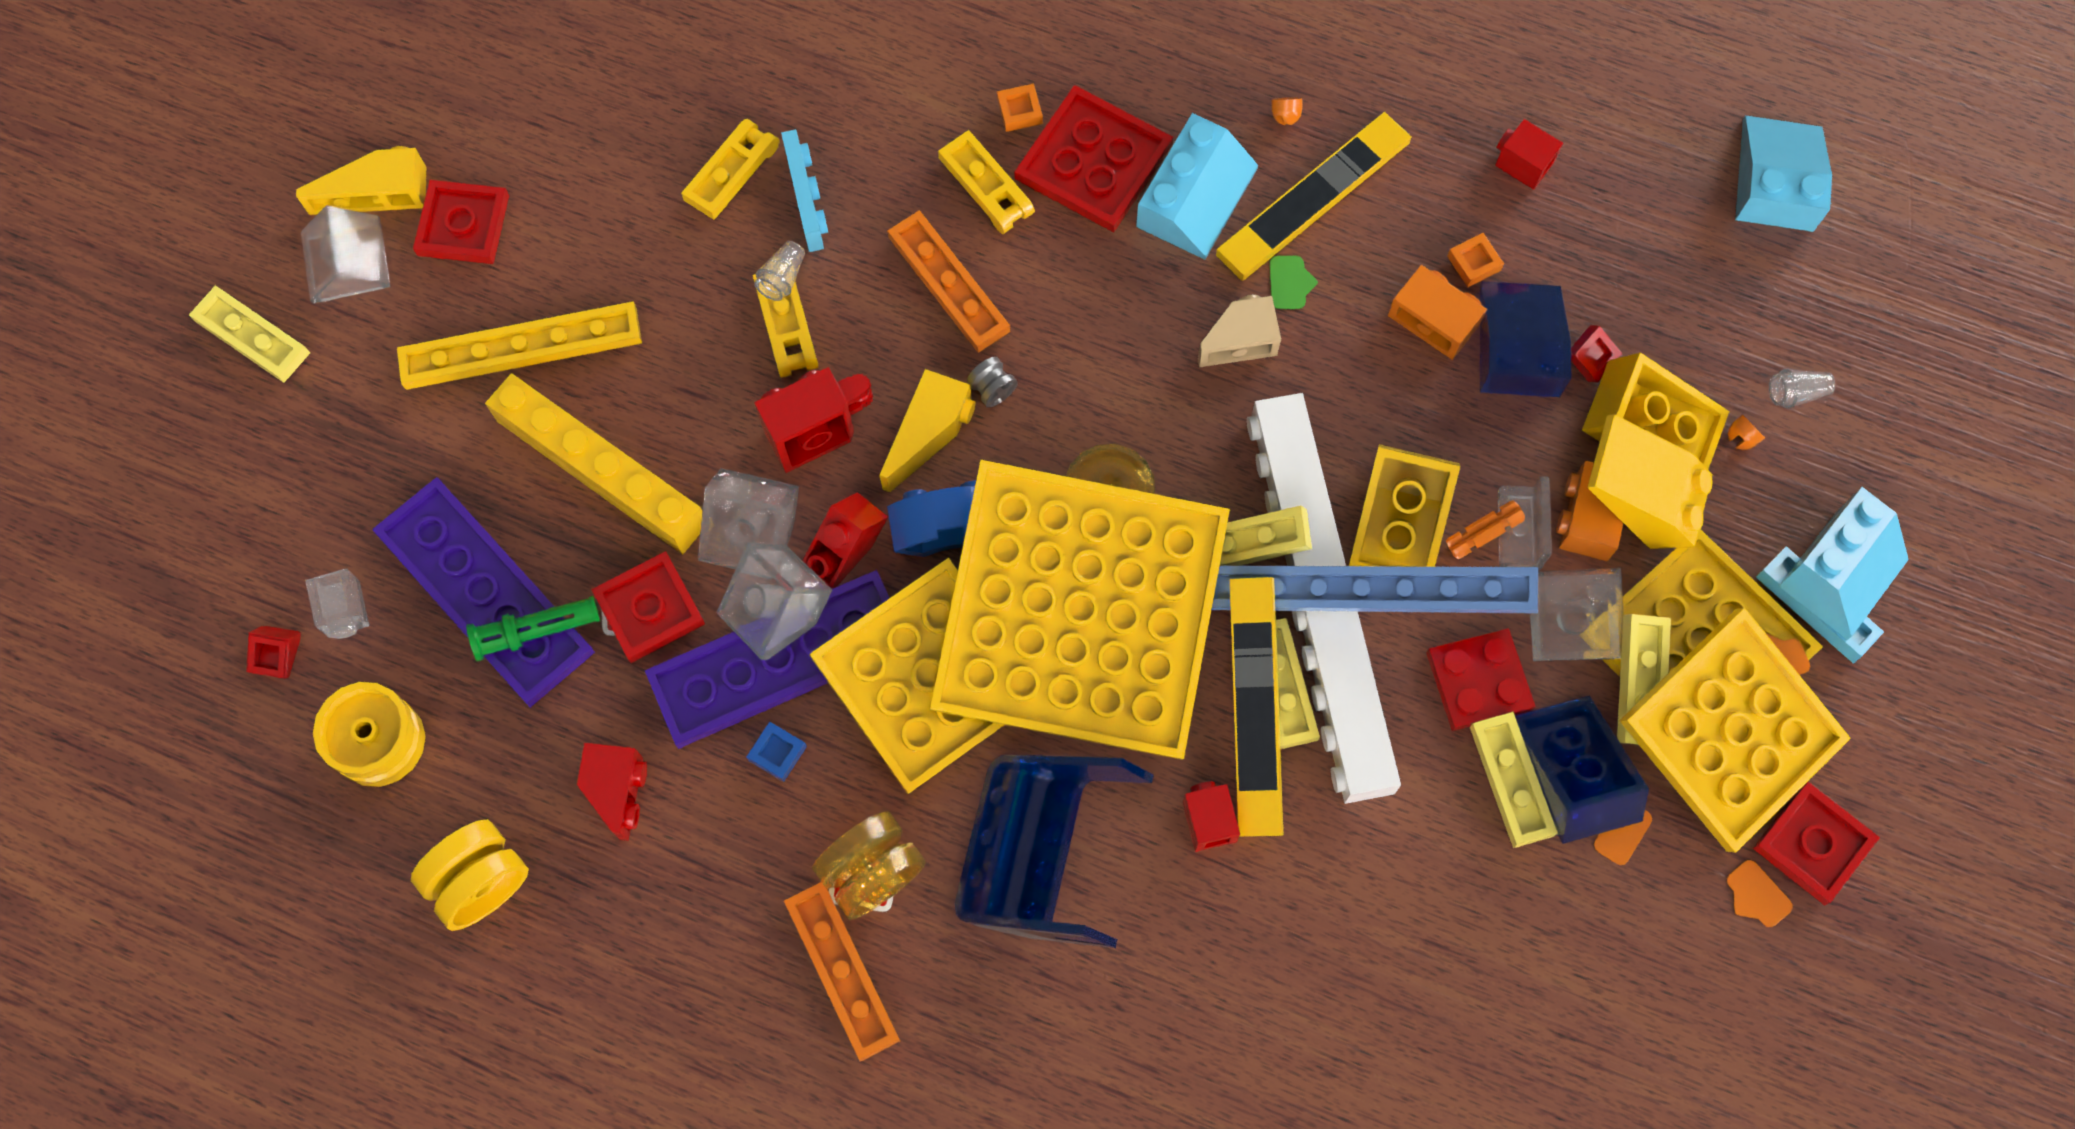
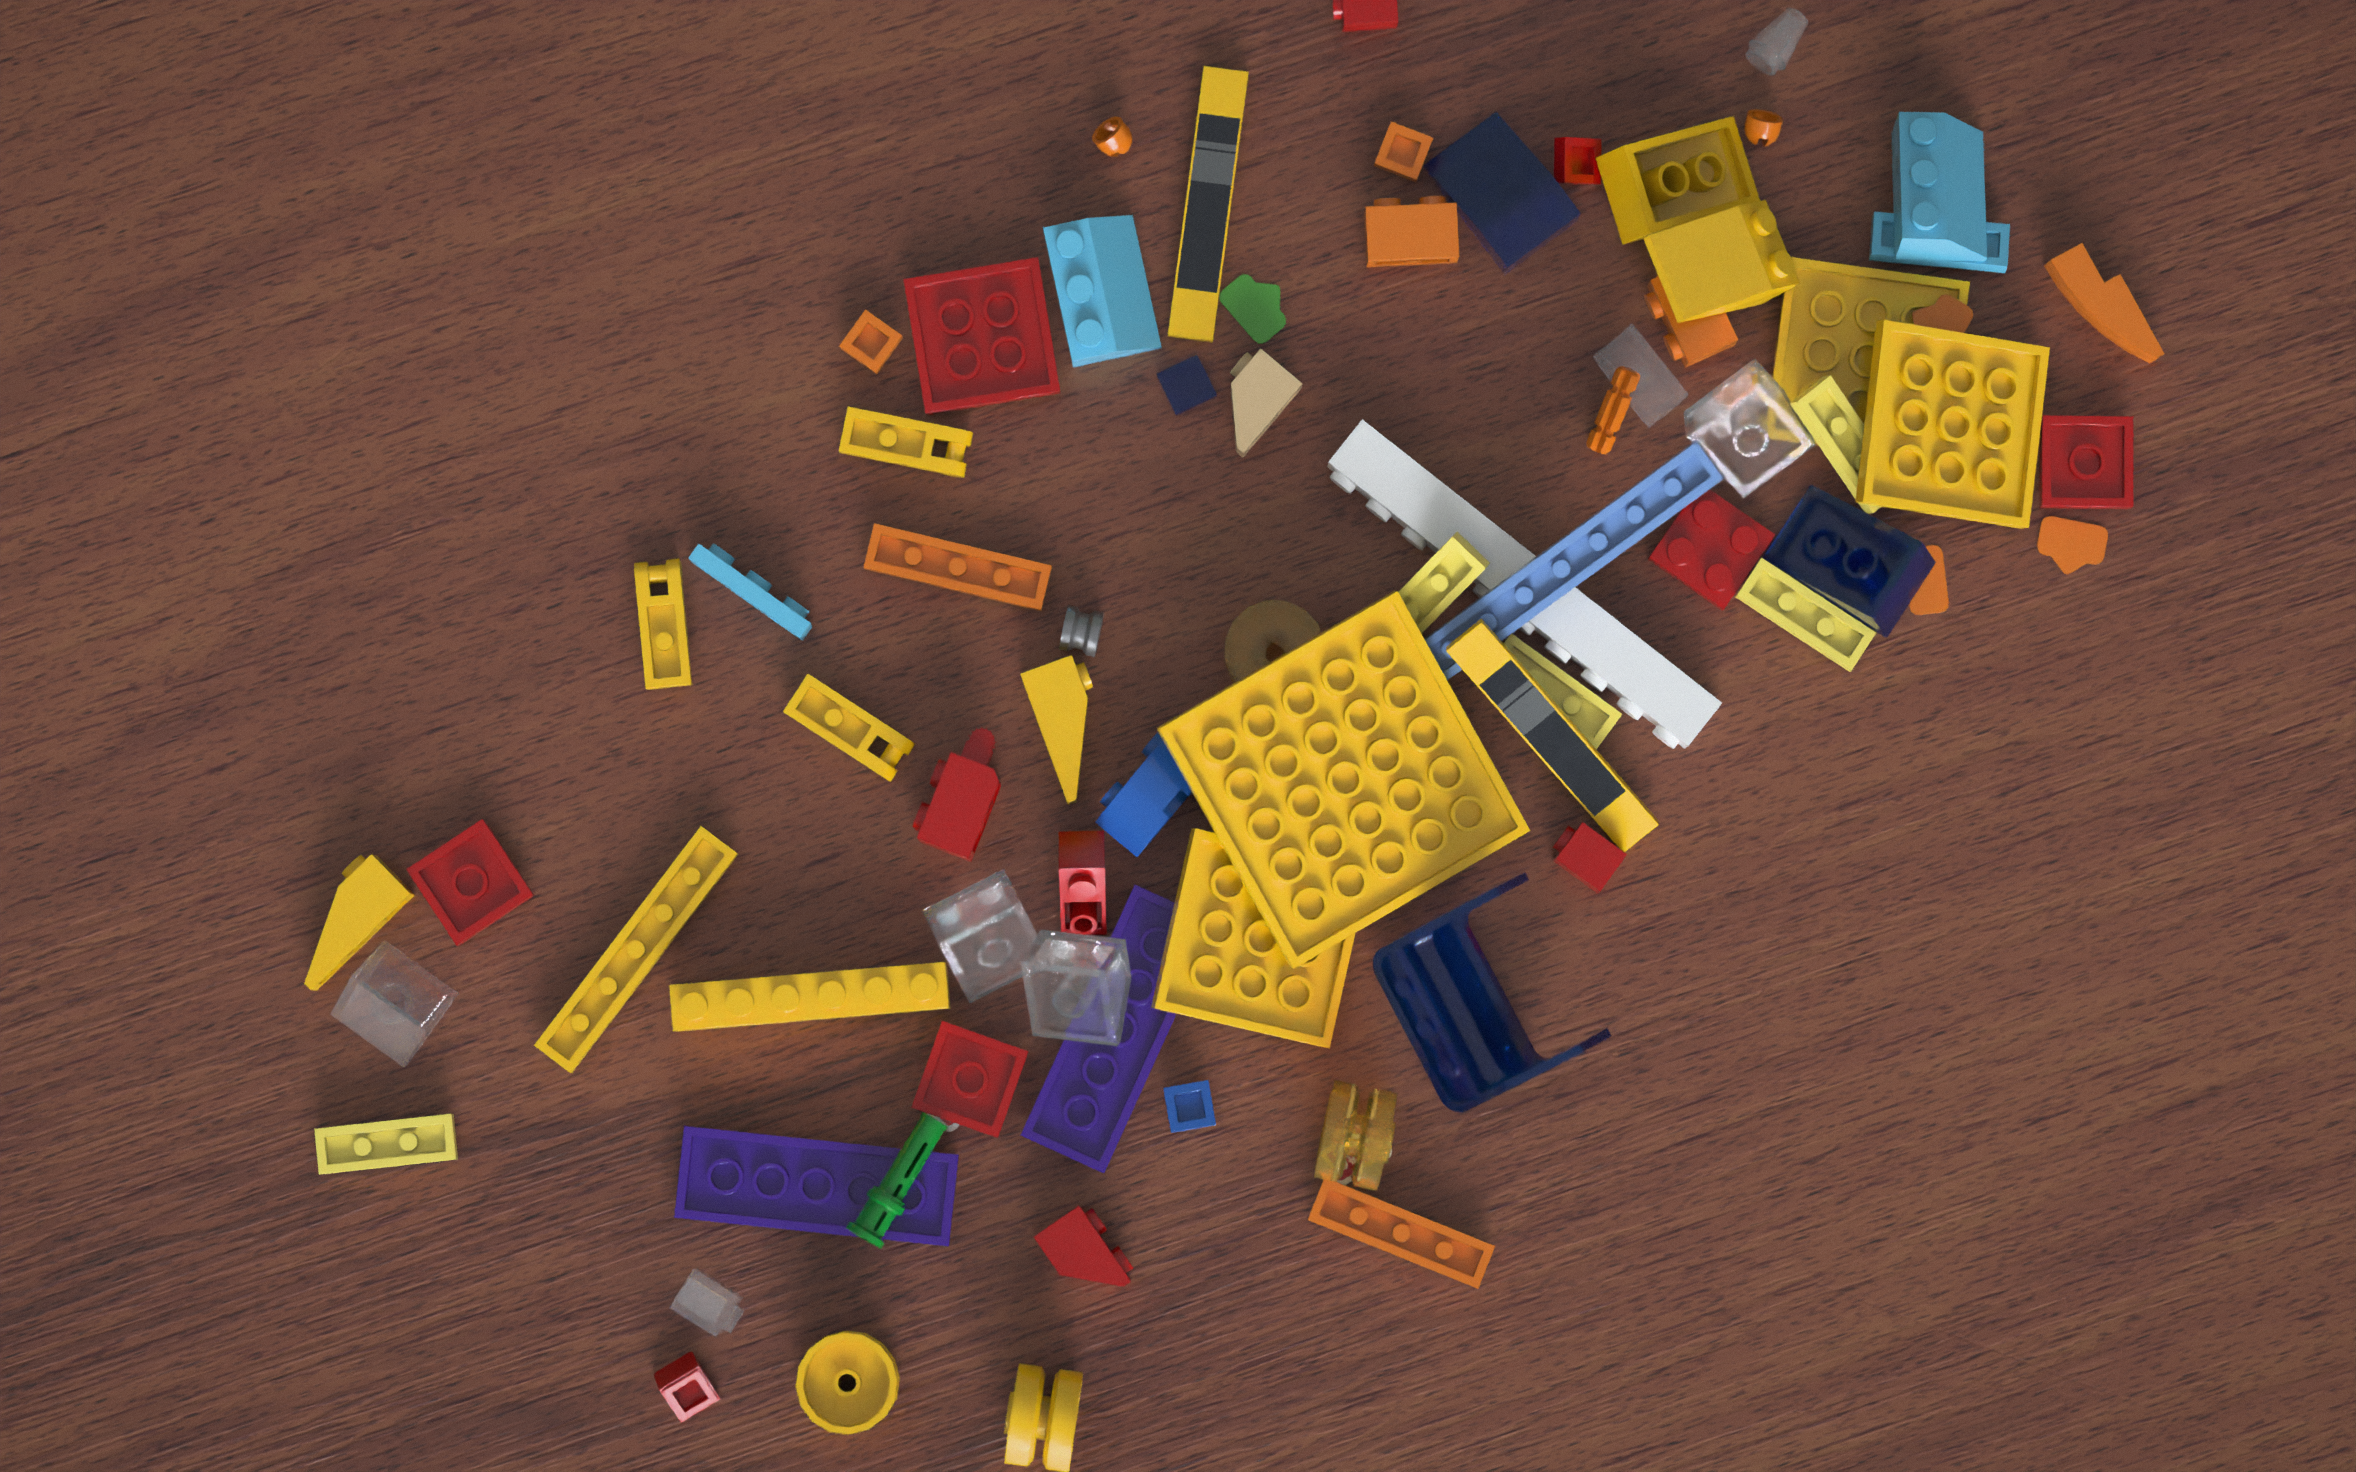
camera: 45 degrees left, 15 degrees up
(780, 271) = (811, 690): clear cone -> none
(1201, 292) = (1186, 385): none -> clear blue tile
(1404, 509) = (1533, 452): yellow slope -> none
(1916, 742) = (2104, 304): none -> orange slope

